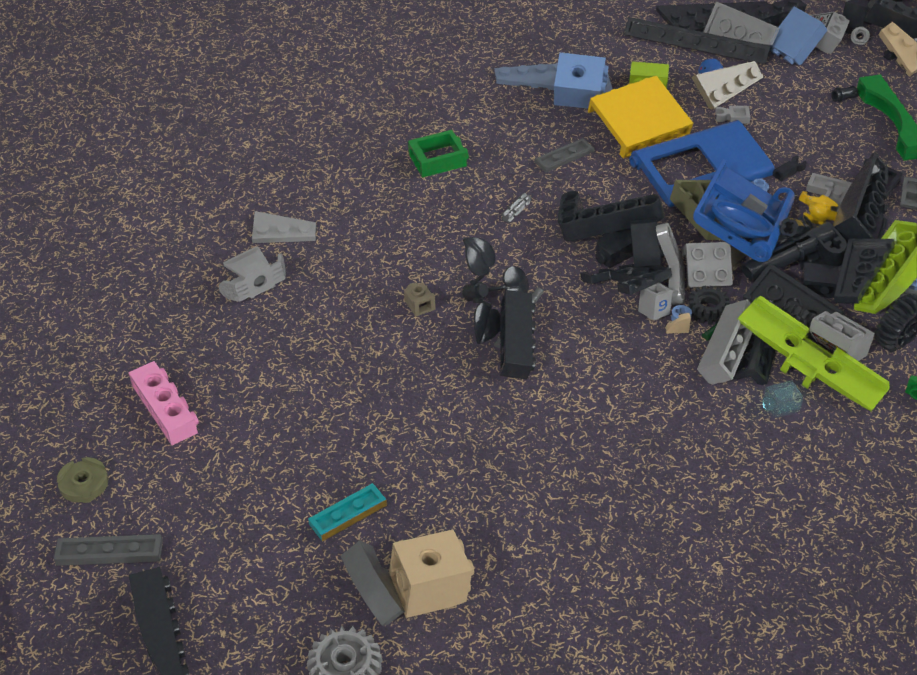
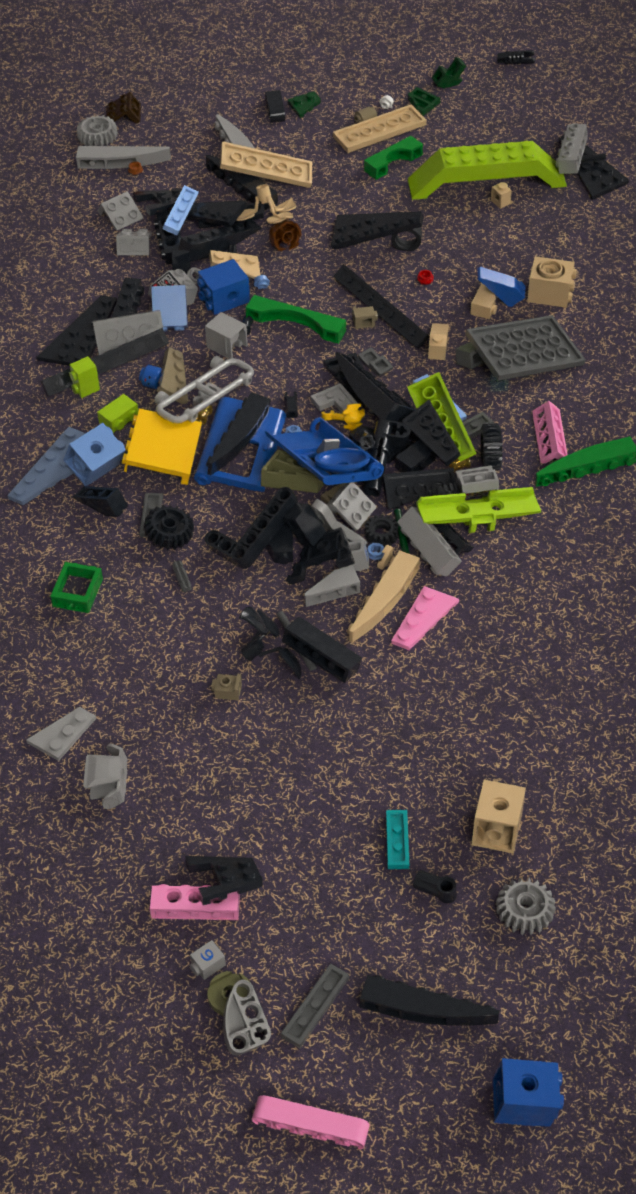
camera: 55 degrees left, 5 degrees up
(43, 500) = (238, 1025): none -> light grey beam
(106, 443) = (207, 960): none -> light grey brick
(207, 411) = (230, 874): none -> black wing
(313, 572) = (435, 885): none -> black piece
(373, 582) = (476, 854): dark grey slope -> none
(545, 119) = (102, 499): none -> black slope
(556, 168) = (168, 527): none -> black gear
(604, 306) = (336, 585): none -> light grey slope
(633, 347) = (385, 593): none -> tan slope
(653, 389) = (423, 616): none -> bright pink wing
(659, 35) = (84, 377): none -> lime piece
(706, 148) = (240, 431): none -> black slope
(710, 121) = (202, 415): none -> clear yellow bush
(775, 100) = (217, 365): none -> light grey bar
(782, 399) = (496, 547): clear light blue brick -> none
(811, 83) = (224, 334): none -> light grey piece
(859, 316) = (458, 465): none -> clear yellow bush
(863, 51) = (223, 286): none -> blue brick
(907, 75) = (261, 281): none -> medium blue plate

